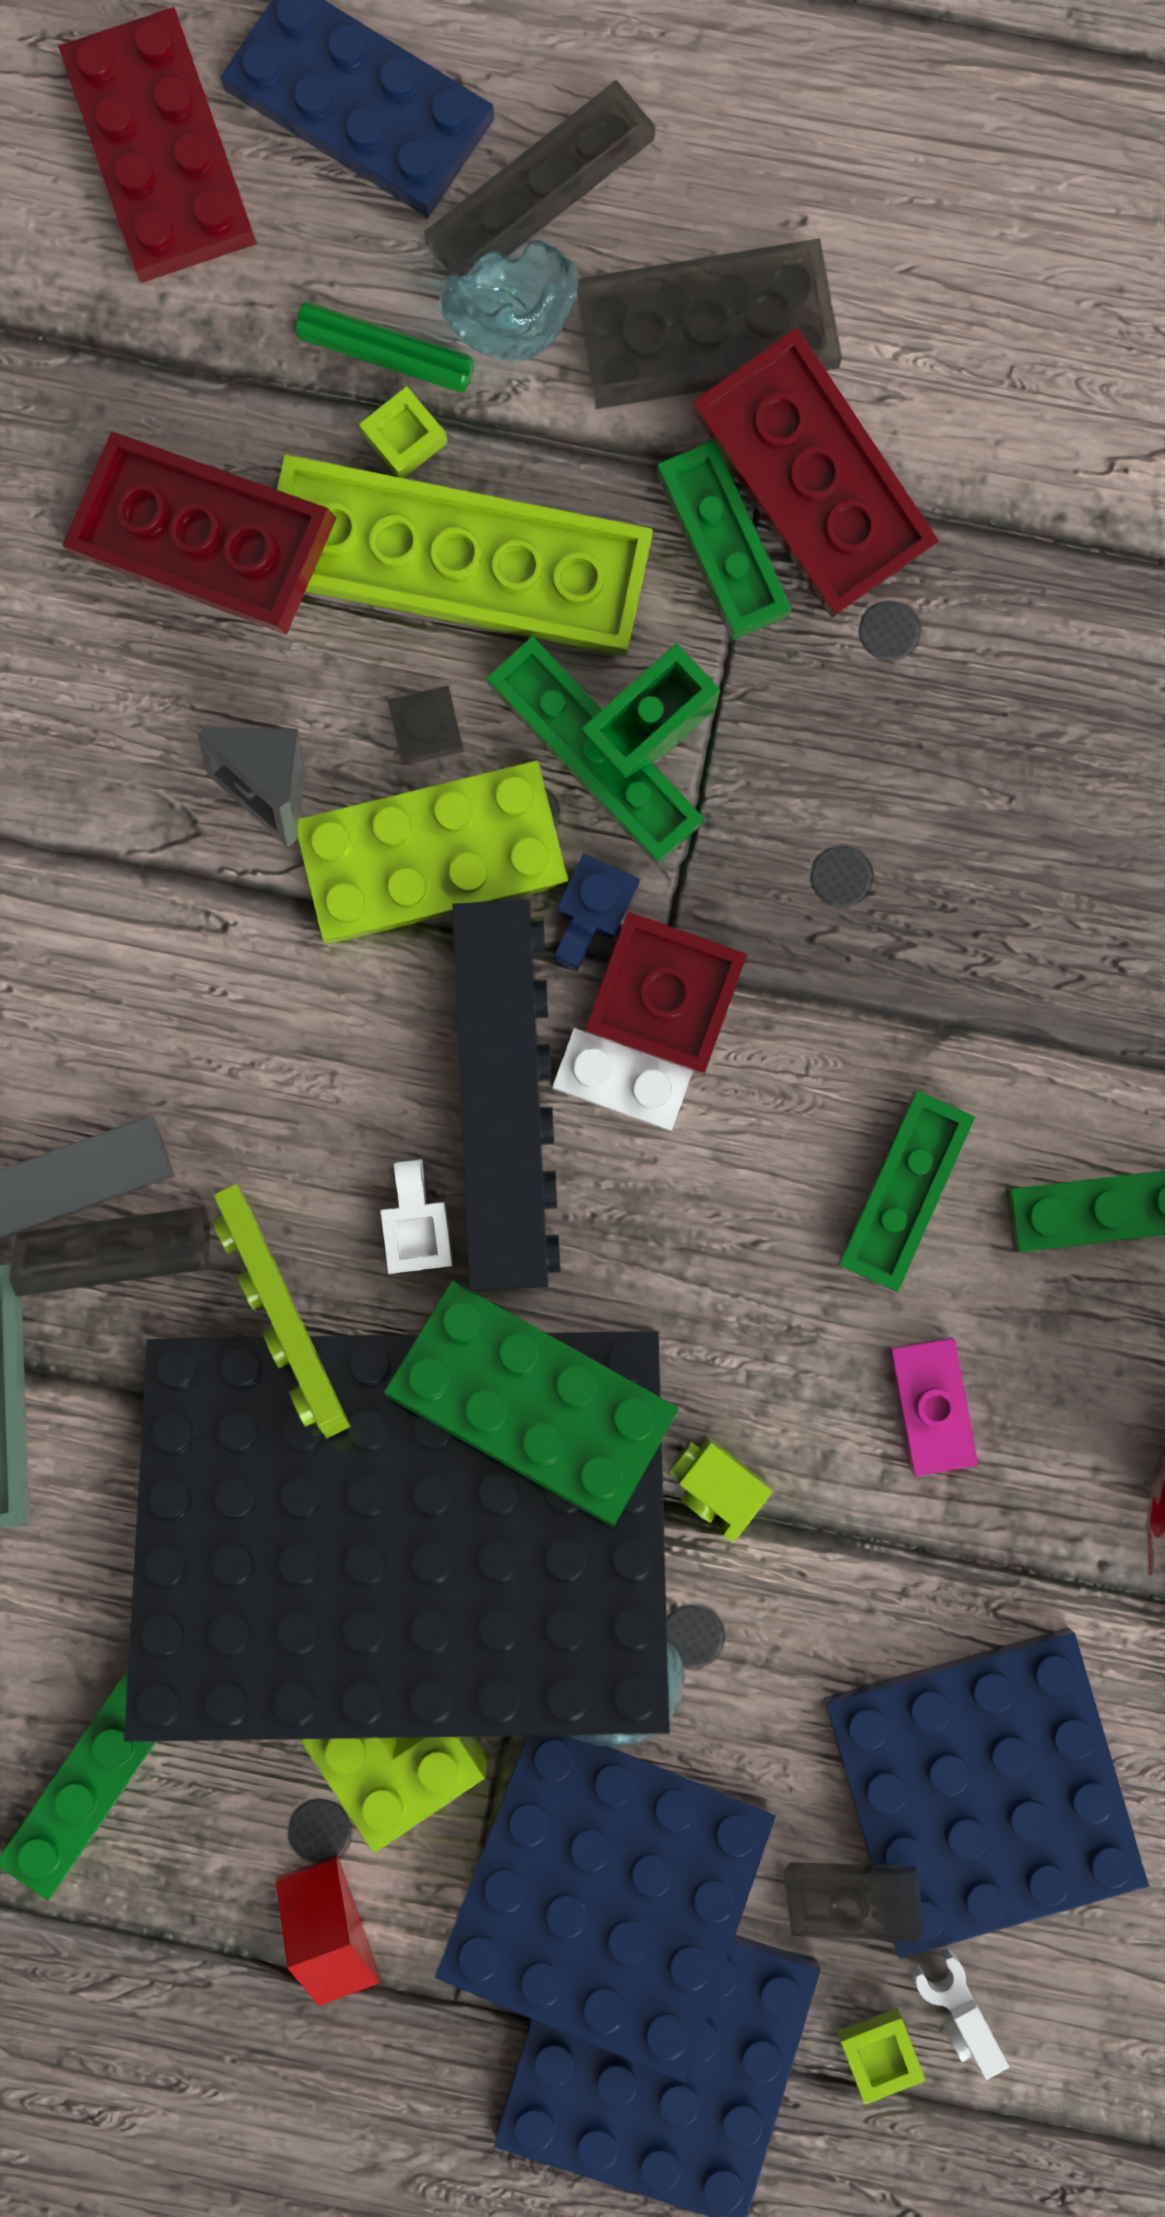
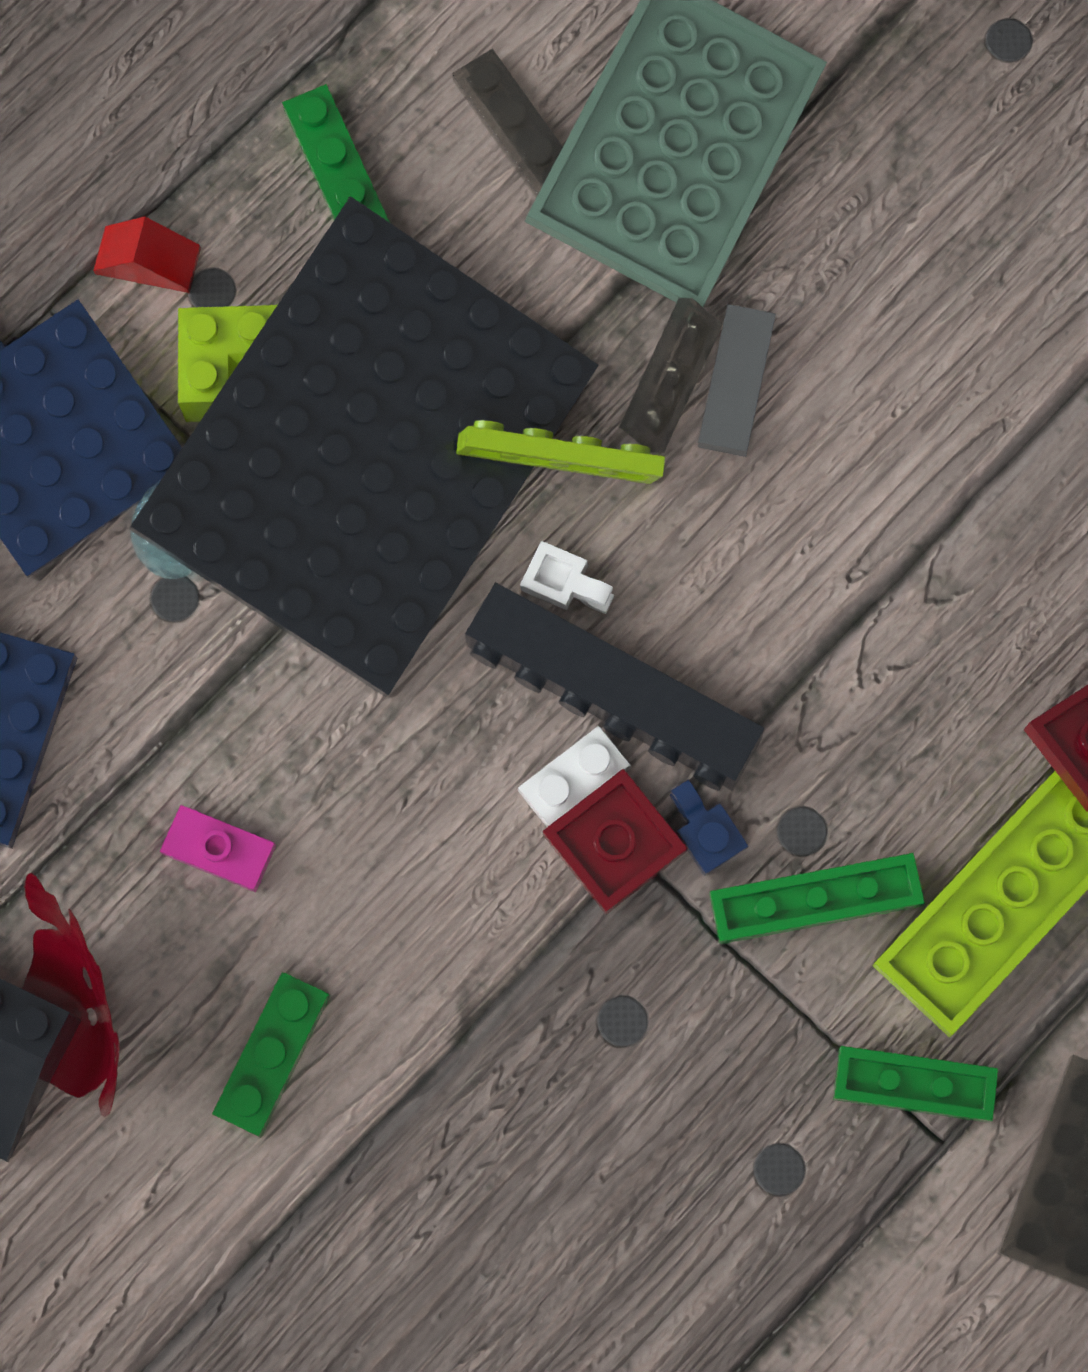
camera: 125 degrees right, 10 degrees down
(260, 771) = (935, 662): dark grey slope -> none
(425, 725) = (907, 796): clear smoke plate -> none
(431, 848) = (813, 746): lime plate -> none
(532, 1403) = (395, 576): green plate -> none
(653, 712) = (814, 944): green slope -> none
(719, 1486) = (261, 670): lime brick -> none
(814, 472) = (922, 1175): dark red plate -> none
(905, 1190) = (374, 920): green plate -> none

